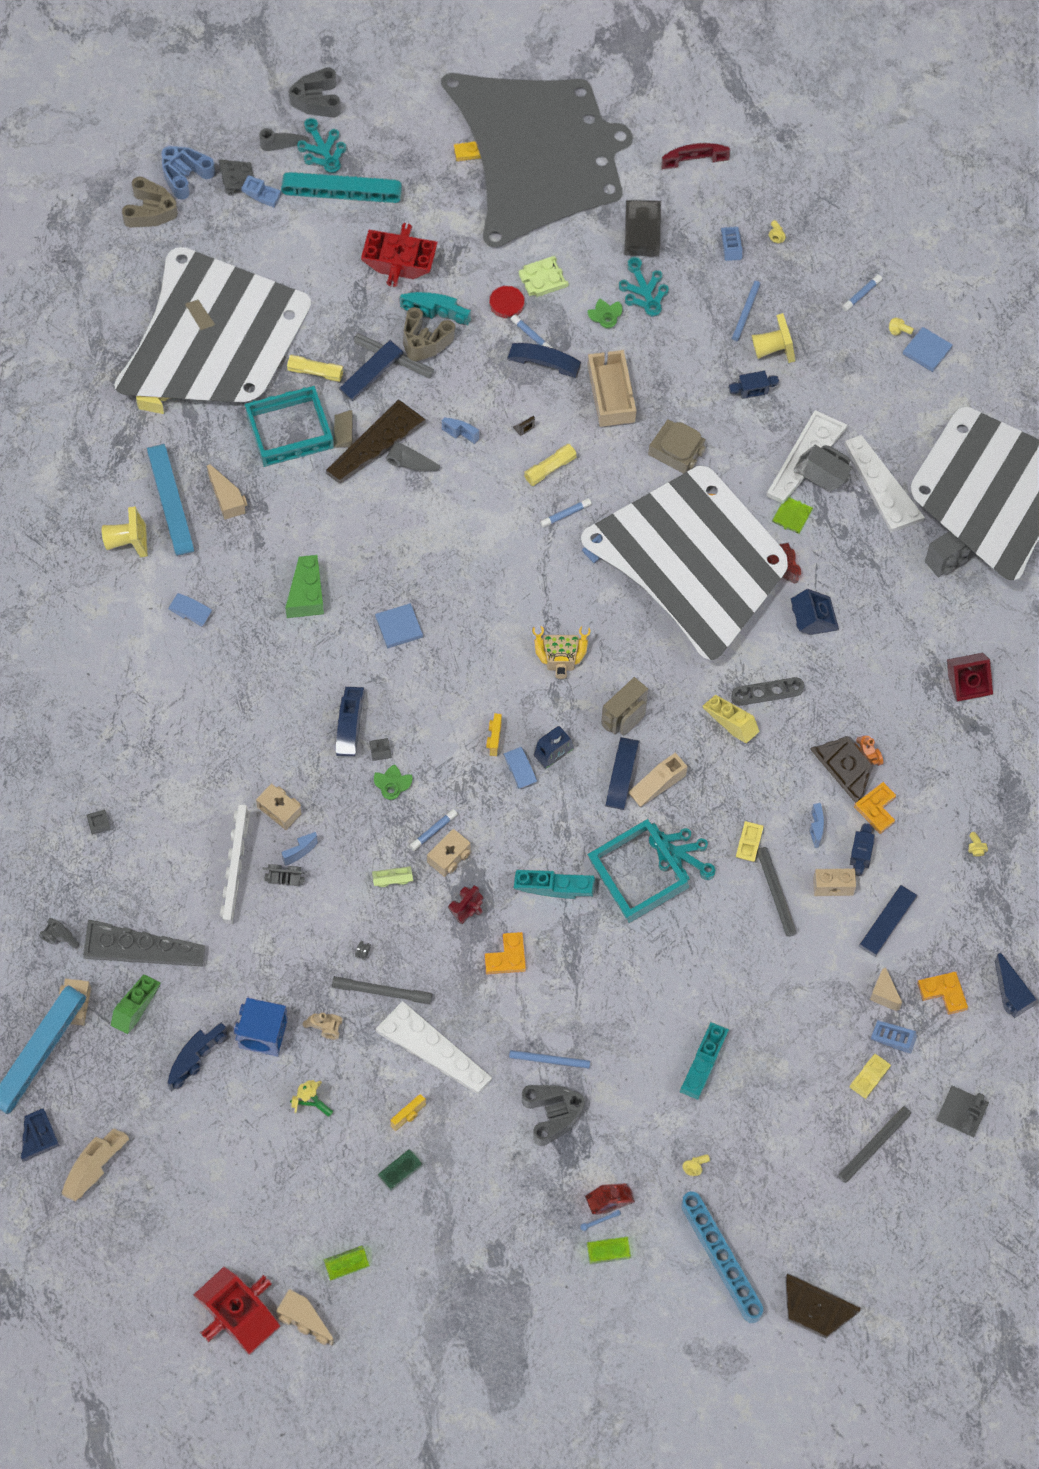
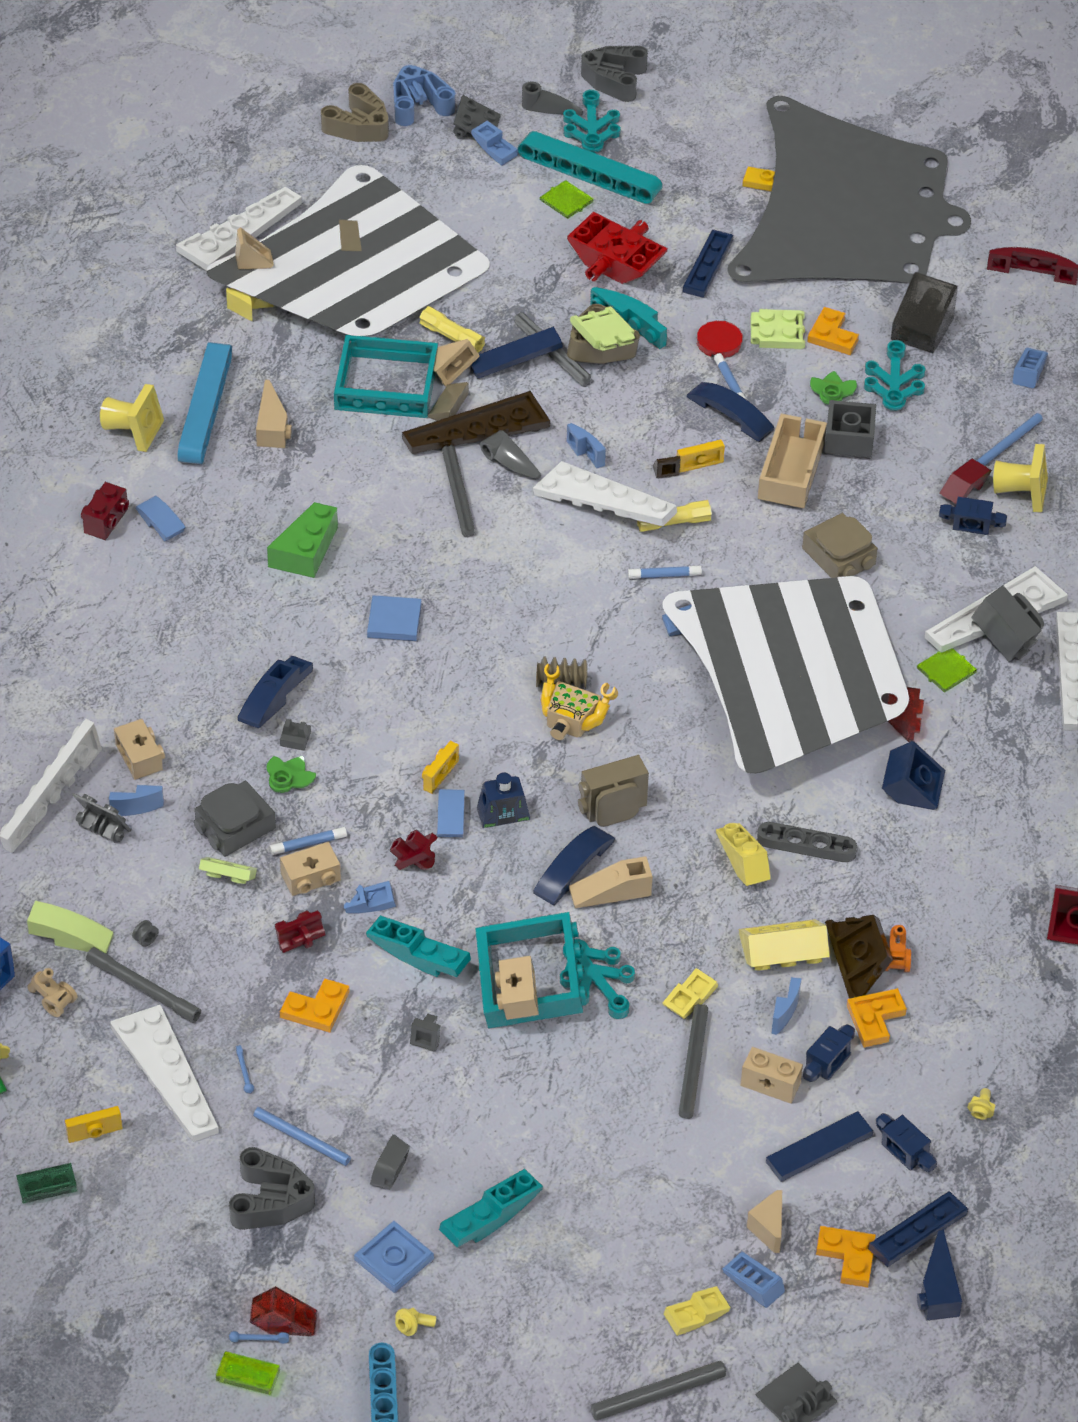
camera: 25 degrees right, 15 degrees down
(108, 349) = (221, 239): none -> white wing
(142, 361) = (251, 252): none -> tan slope
(148, 623) = (104, 510): none -> dark red brick
(309, 969) = (68, 928): none -> yellowish green slope
(332, 394) = (453, 360): none -> tan slope
(336, 220) = (566, 199): none -> clear neon green piece
(375, 834) = (233, 817): none -> dark grey brick
(389, 502) = (458, 491): none -> dark grey axle
(432, 332) = (605, 330): none -> yellowish green plate
(466, 239) = (707, 263): none -> dark blue tile
(478, 466) = (603, 494): none -> white wing
(494, 1037) = (248, 1087): none -> medium blue hinge
(501, 856) = (371, 899): none -> medium blue slope
(513, 810) = (414, 850): none -> dark red hips
(547, 621) = (568, 673): none -> dark tan piece
(548, 404) = (701, 455): none -> yellow plate
(579, 268) = (828, 332): none -> light orange plate
(593, 947) = (425, 1032): none -> dark grey tile
(621, 1056) = (390, 1163): none -> dark grey piece
(639, 345) = (850, 428): none -> dark grey brick
(642, 881) = (517, 987): none -> tan brick
(656, 1122) = (394, 1256): none -> medium blue tile
(734, 358) = (964, 479): none -> dark red slope
(792, 777) = (784, 944): none -> light yellow slope
(943, 895) = (906, 1142): none -> dark blue piece
(980, 955) = (918, 1229): none -> dark blue tile

